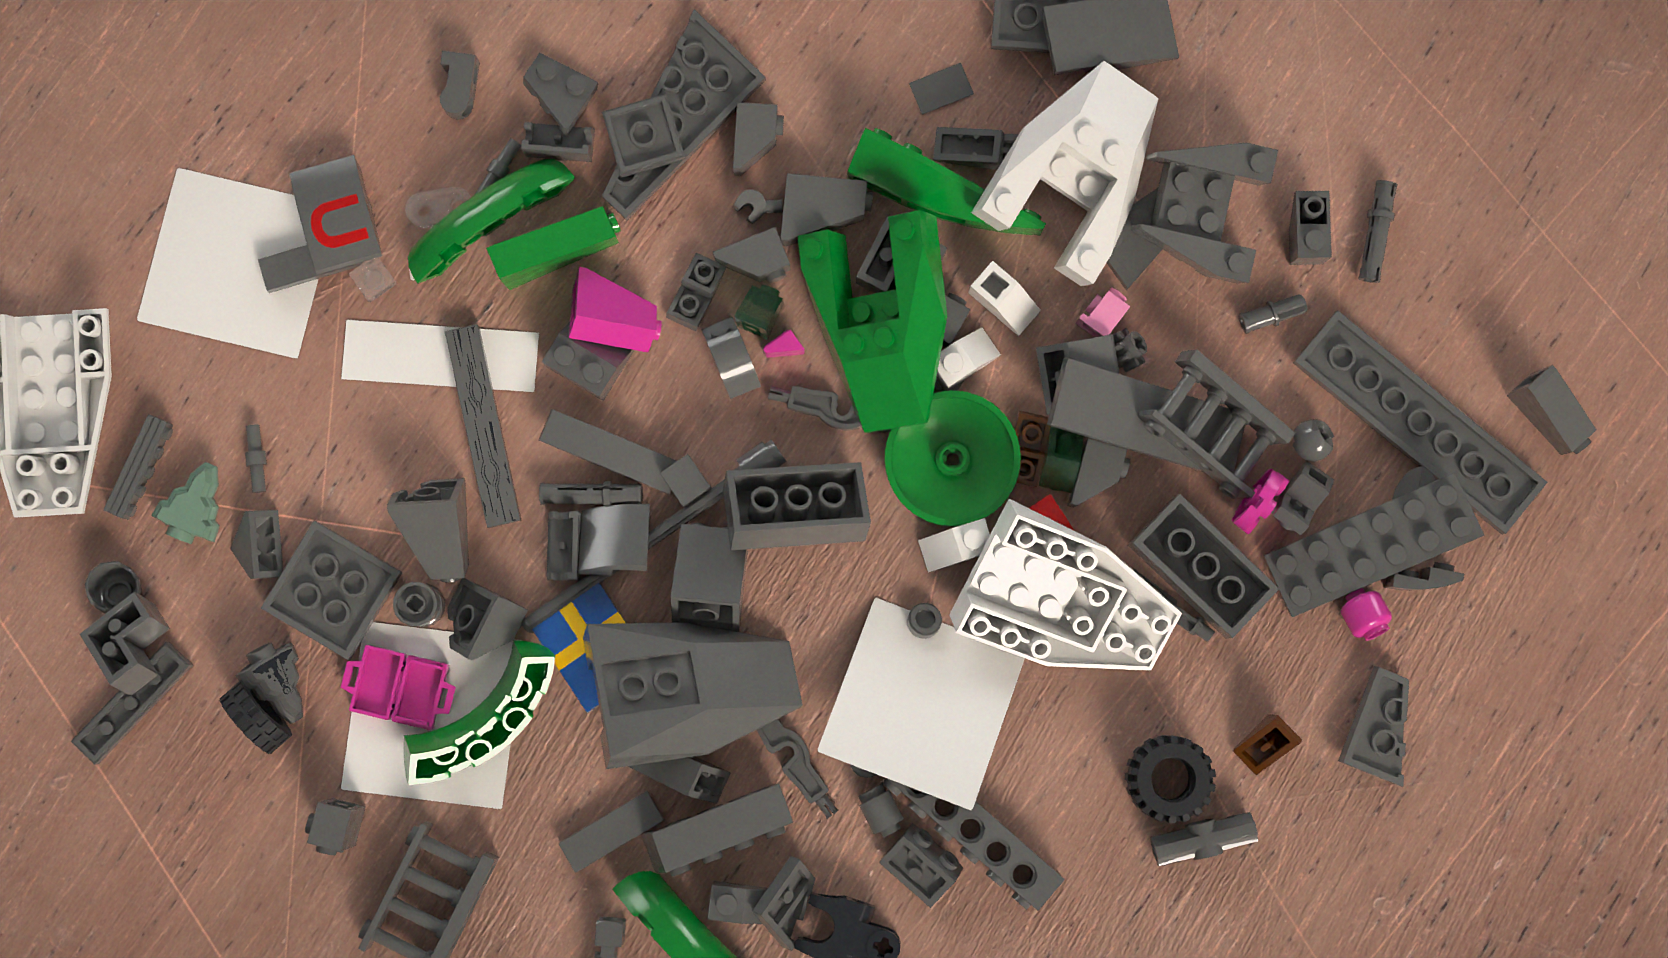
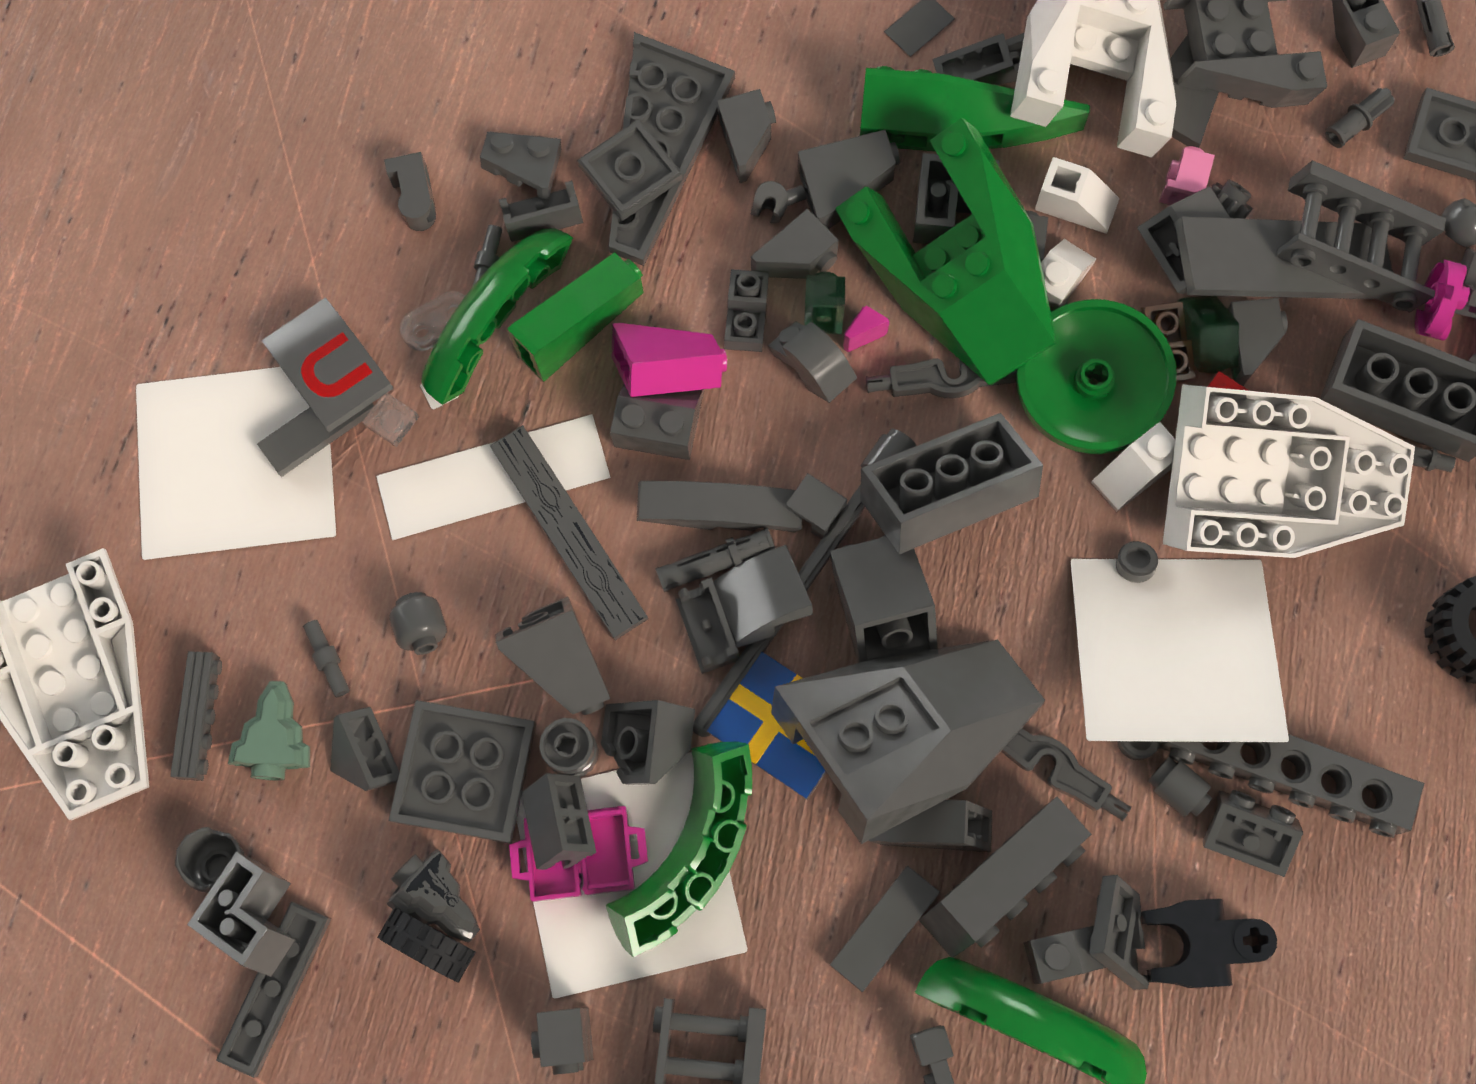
camera: 15 degrees left, 10 degrees down
(336, 458) = (418, 623): none -> dark grey head
(390, 658) = (558, 821): none -> dark grey hinge

